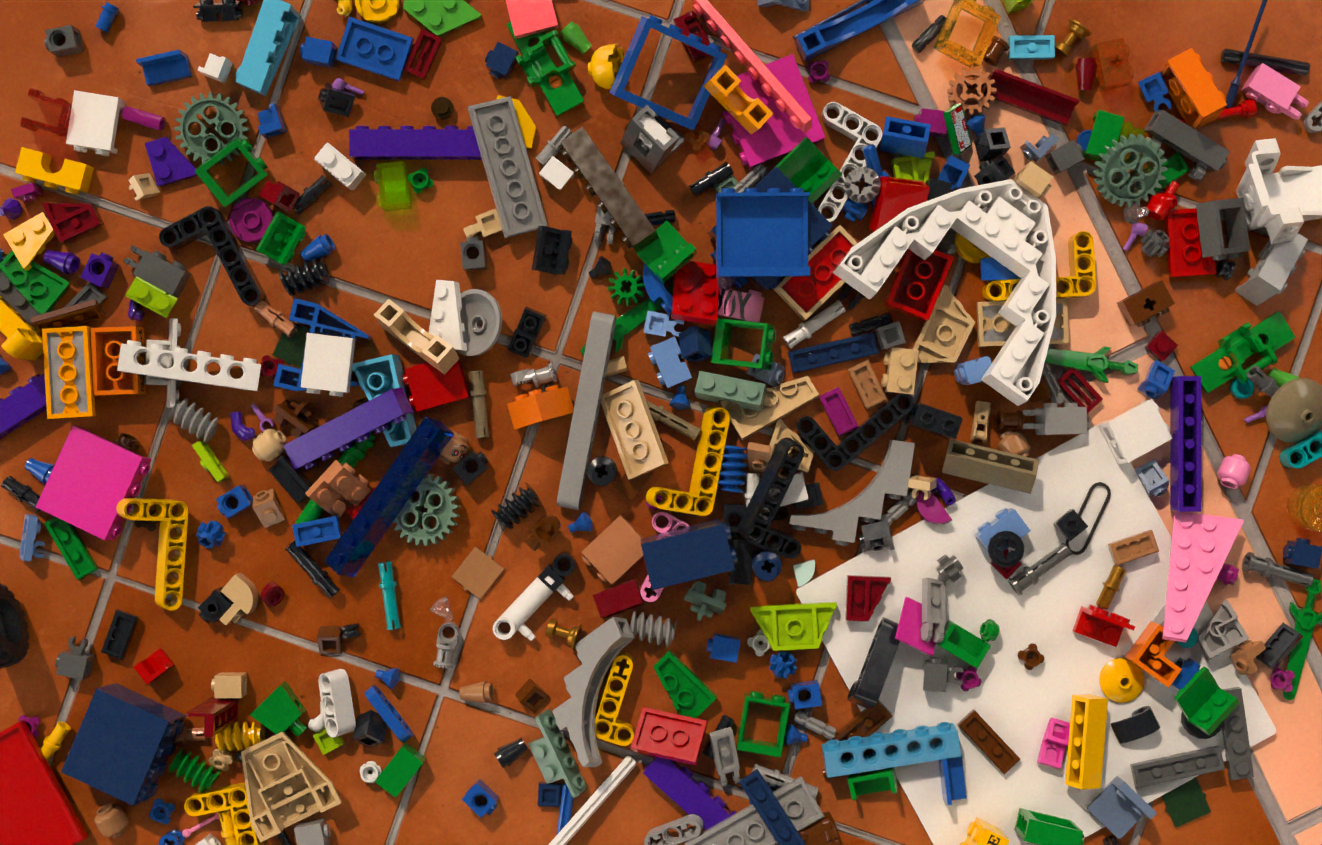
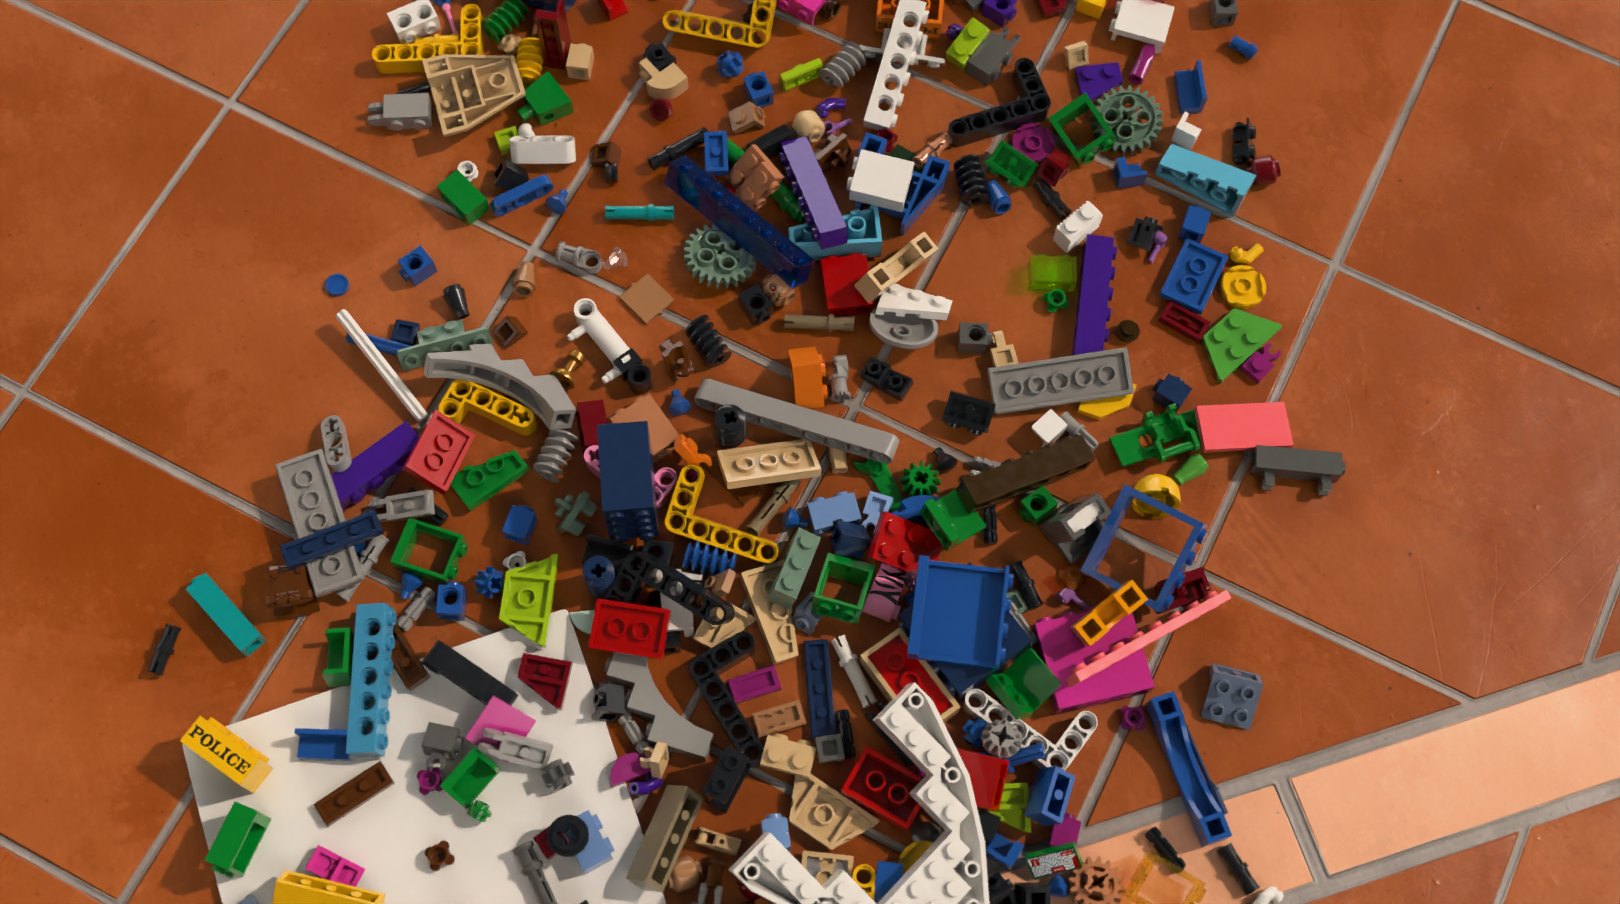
camera: 90 degrees right, 20 degrees down
(631, 167) = (1041, 497): none -> green brick
(634, 506) = (688, 451): none -> orange plate
(814, 529) = (629, 629): none -> red plate

